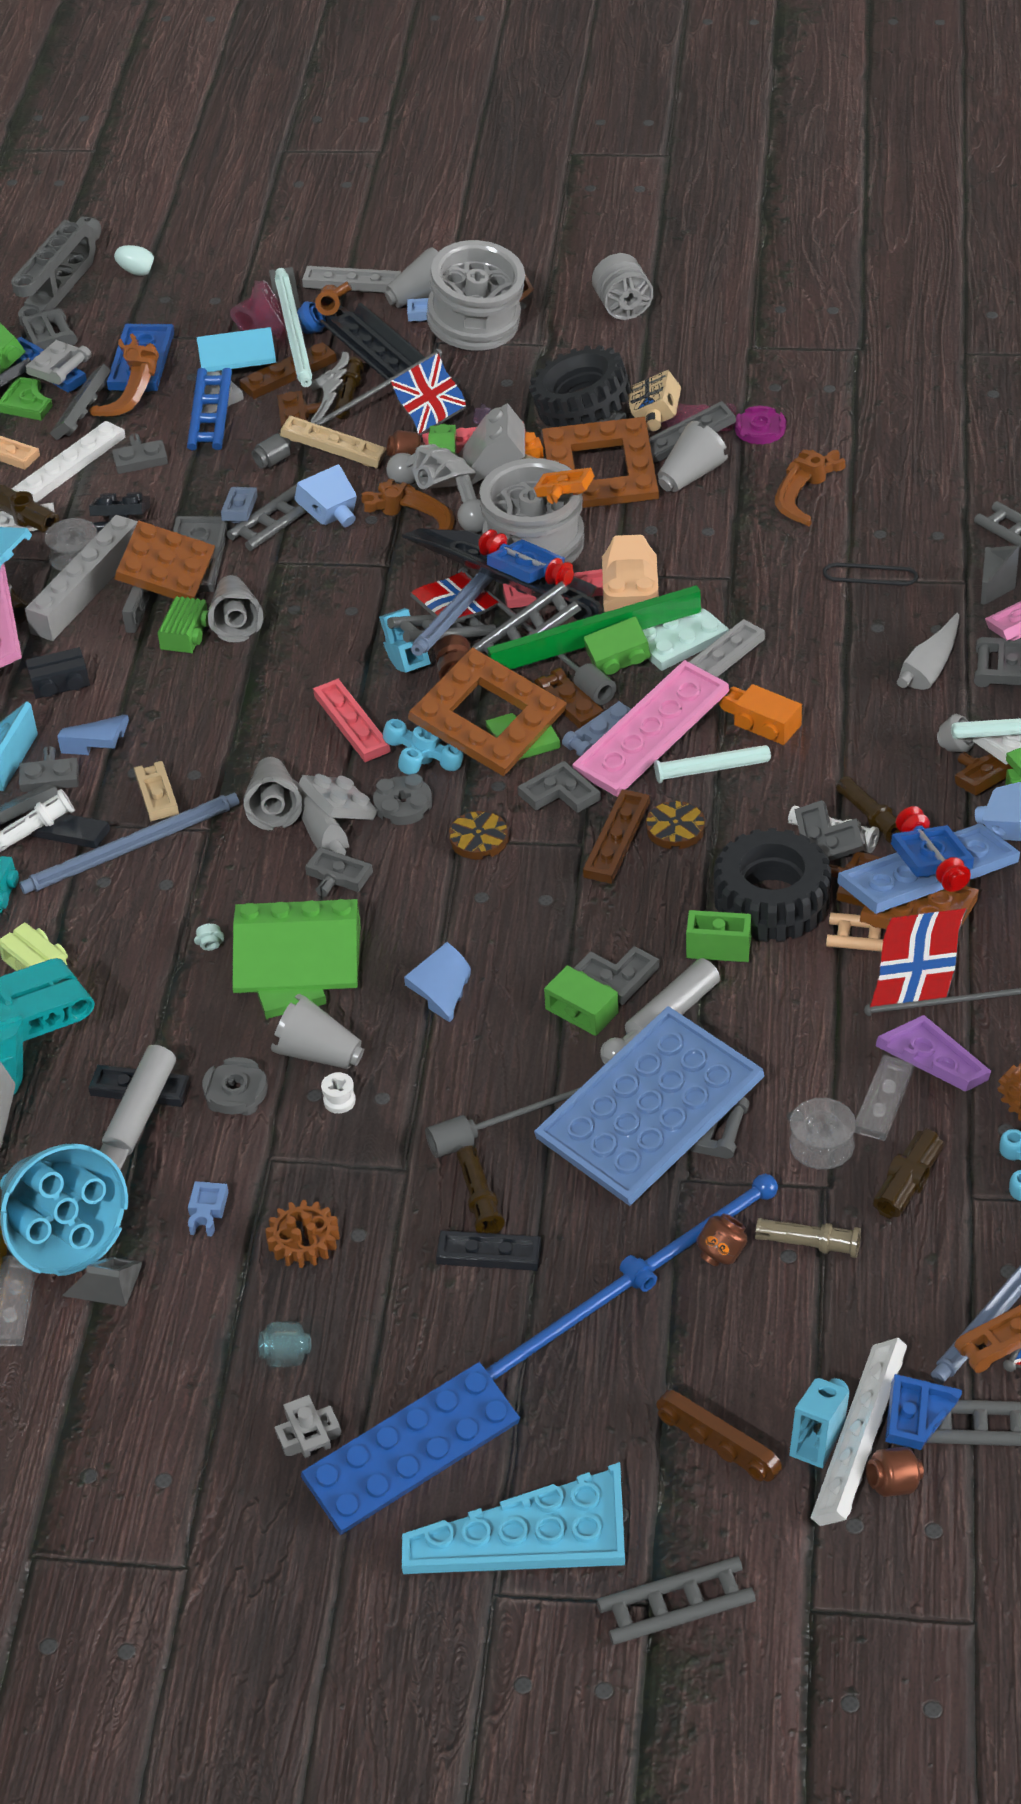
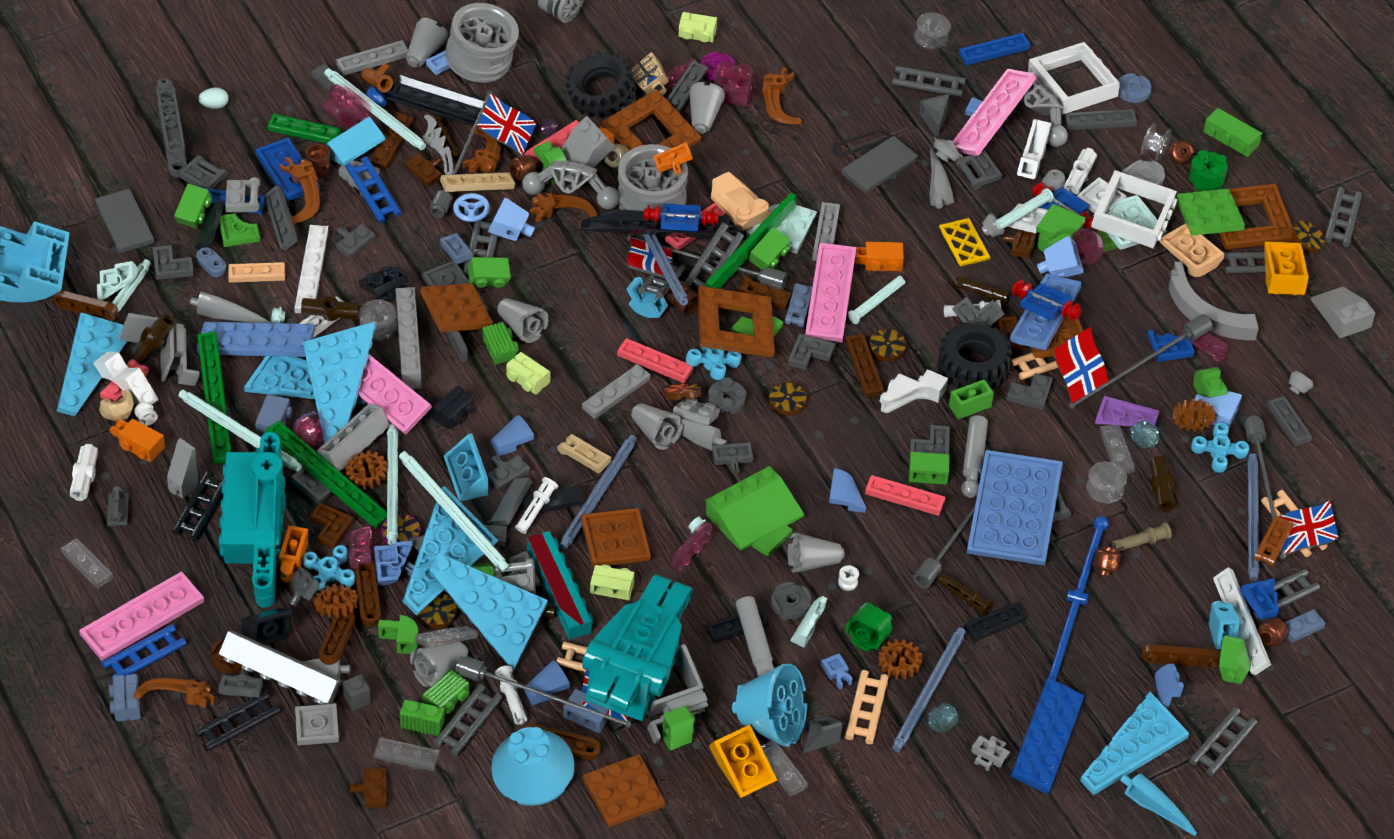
camera: 40 degrees left, 5 degrees up
(91, 904) = (615, 537): none -> dark orange plate
(175, 957) = (692, 546): none -> clear pink plate
(178, 357) = (320, 158): none -> copper wheel
(181, 671) = (528, 373): none -> yellowish green brick
(196, 319) = (303, 128): none -> green tile
(198, 1294) = (872, 716): none -> light nougat bar
(214, 1132) = (806, 627): none -> light aqua slope
(246, 540) = (489, 272): none -> bright green brick
(271, 736) = (616, 391): none -> light grey plate
(294, 1167) = (869, 627): none -> green brick
(301, 469) = (471, 210): none -> light blue piece
(306, 1295) = (930, 686): none -> sand blue piece
(344, 767) = (679, 391): none -> tile
(370, 424) = (485, 159): none -> dark orange piece
(487, 1626) = (1151, 797): none -> medium azure piece
(517, 1022) = (905, 495): none -> coral plate
(640, 888) = (905, 390): none -> white arch
(659, 1466) = (1168, 684): none -> medium blue slope
(754, 445) = (735, 82): none -> clear pink piece
(771, 372) = (697, 27): none -> yellowish green brick
(784, 1482) = (1234, 660): none -> bright green slope
(825, 974) = (1032, 396): none -> dark grey plate
(869, 607) = (879, 164): none -> dark grey tile
(897, 765) = (972, 232): none -> yellow window
(936, 1092) = (1144, 434): none -> clear light blue head
(960, 1488) = (1304, 625): none -> sand blue plate
(970, 619) = (946, 150): none -> light grey piece

